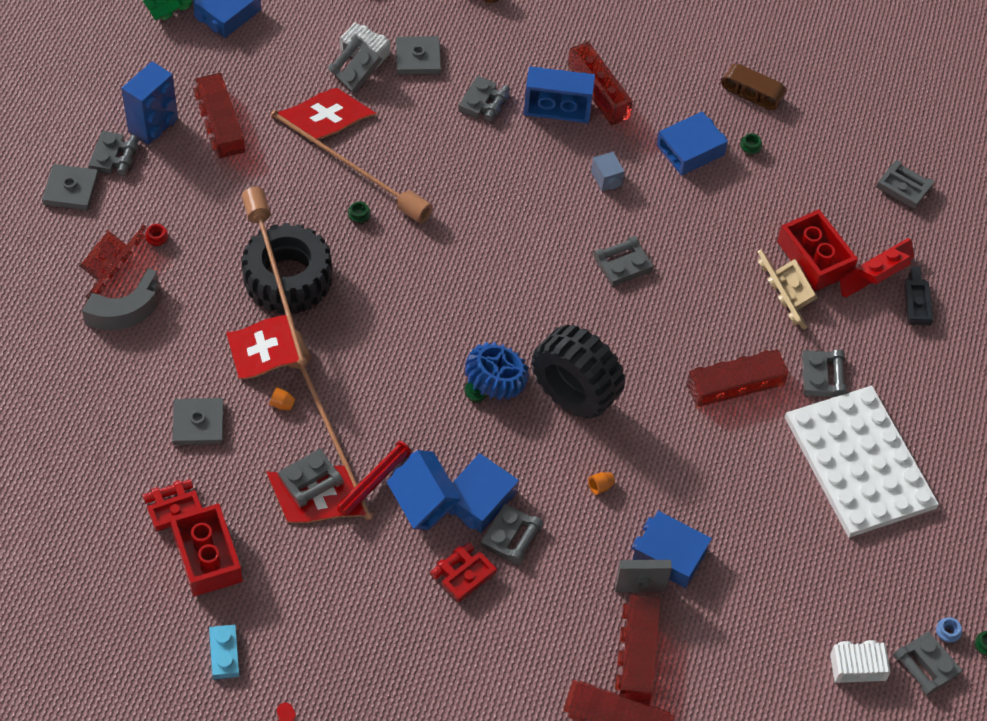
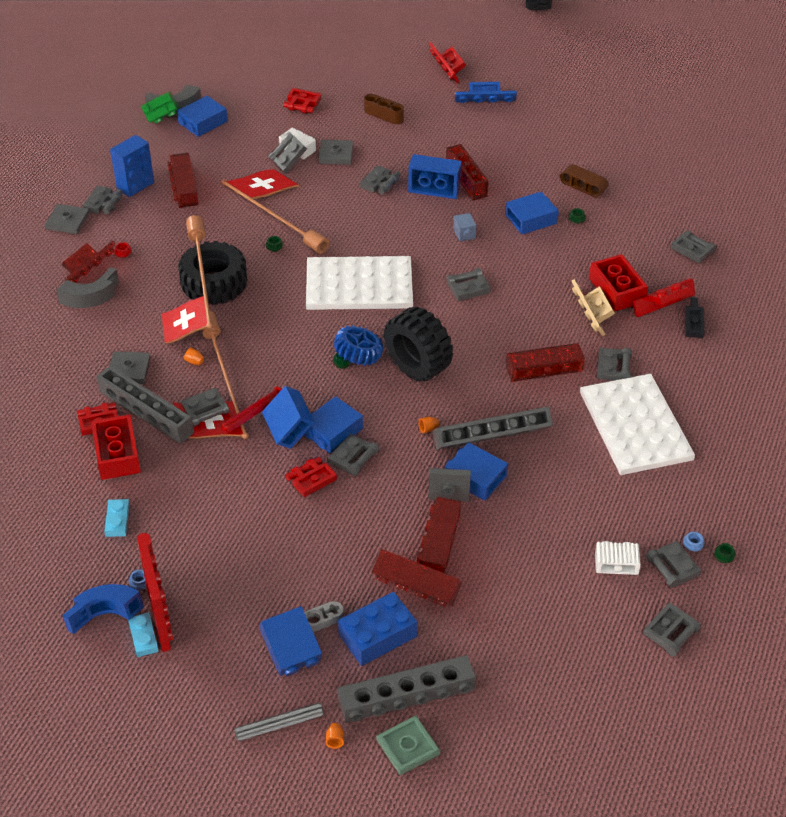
camera: 10 degrees right, 10 degrees down
(233, 482) = (145, 404): none -> dark grey brick
(480, 267) = (359, 282): none -> white plate
(684, 486) = (492, 428): none -> dark grey brick

